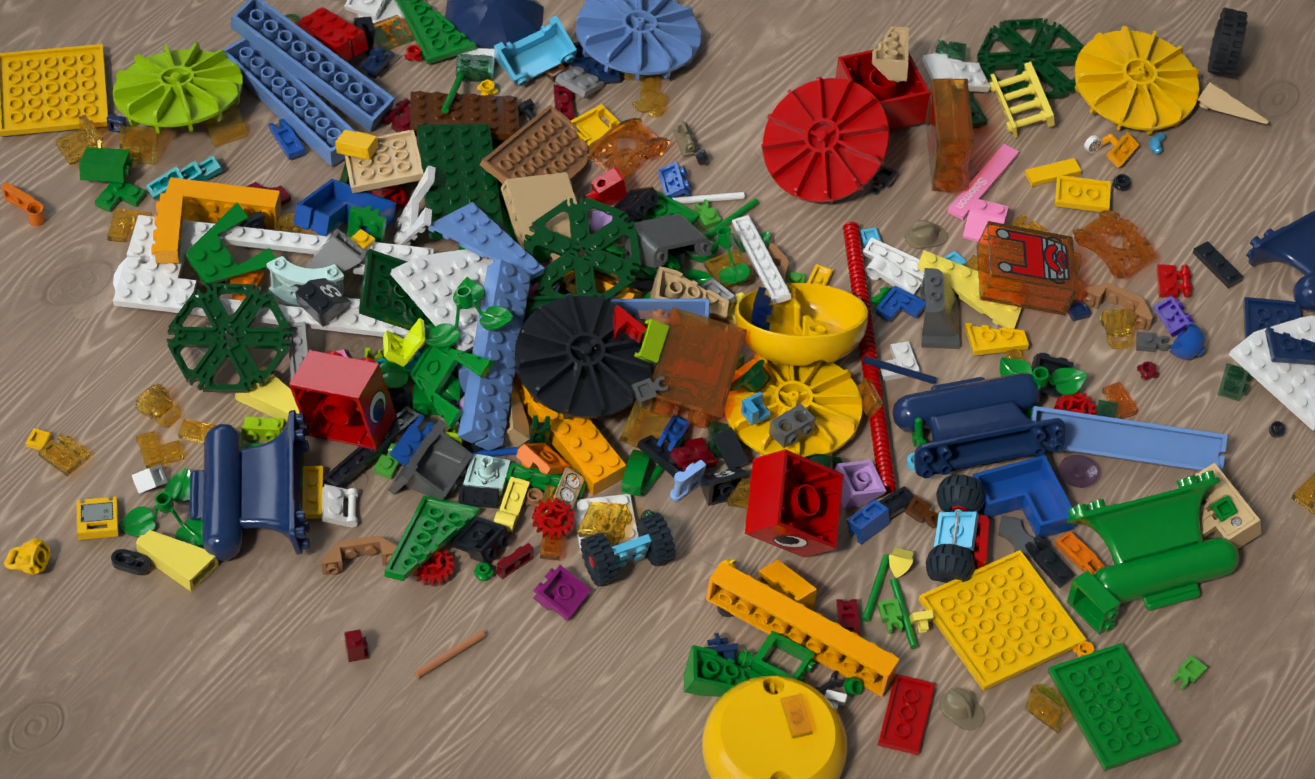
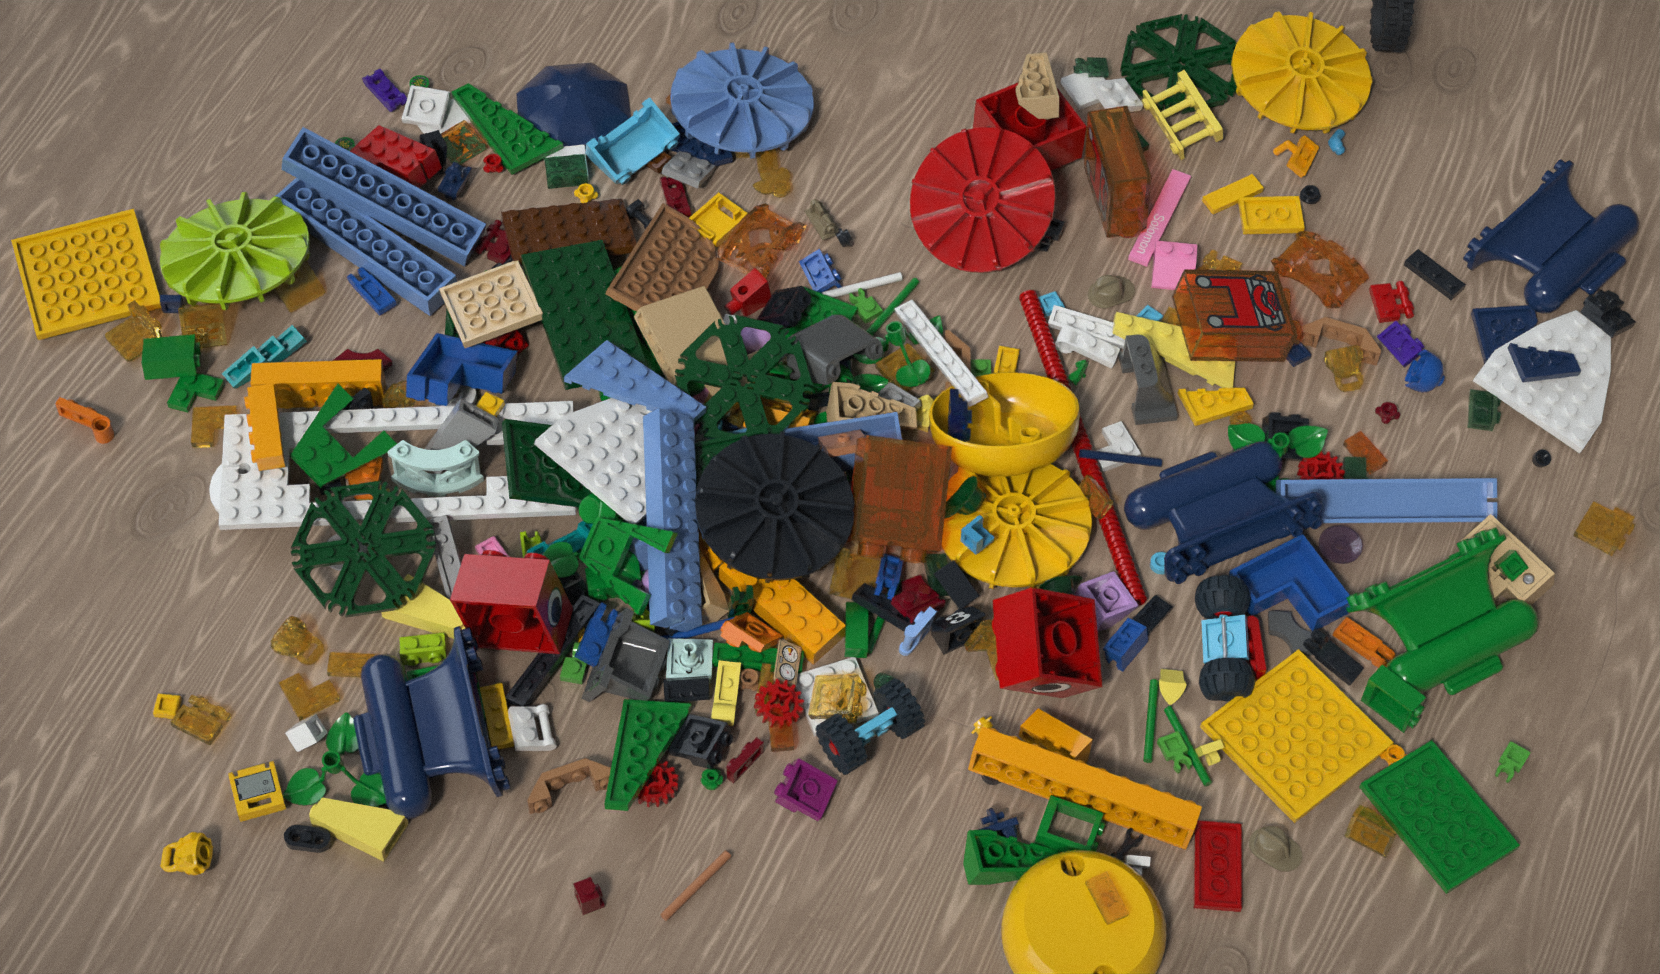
camera: 10 degrees left, 5 degrees up
(321, 300) = (461, 486): black slope -> none
(357, 144) = (457, 288): yellow piece -> none
(365, 217) = (487, 376): green piece -> none
(403, 349) = (568, 529): neon yellow bracket -> none
(409, 223) = (533, 373): white wing -> none
(455, 87) = (550, 206): green bar -> none
(466, 296) = (628, 458): green plant -> none
(626, 323) = (813, 460): red slope -> none
(646, 389) = (853, 535): dark grey plate -> none
(653, 341) = (851, 478): lime hinge -> none
(745, 658) = (1026, 831): green plate -> none
(792, 425) = (1019, 546): dark grey brick -> none
(848, 618) = (1129, 764): dark red plate -> none
(853, 686) = (1152, 843): green plate -> none
(899, 300) = (1099, 374): blue plate -> none
(917, 437) = (1157, 534): green bar -> none
(919, 510) = (1179, 622): reddish brown plate -> none
(1093, 144) = (1269, 154): white tile -> none
(1149, 342) = (1381, 379): dark grey plate -> none
(1221, 101) = (1395, 82): tan wedge -> none

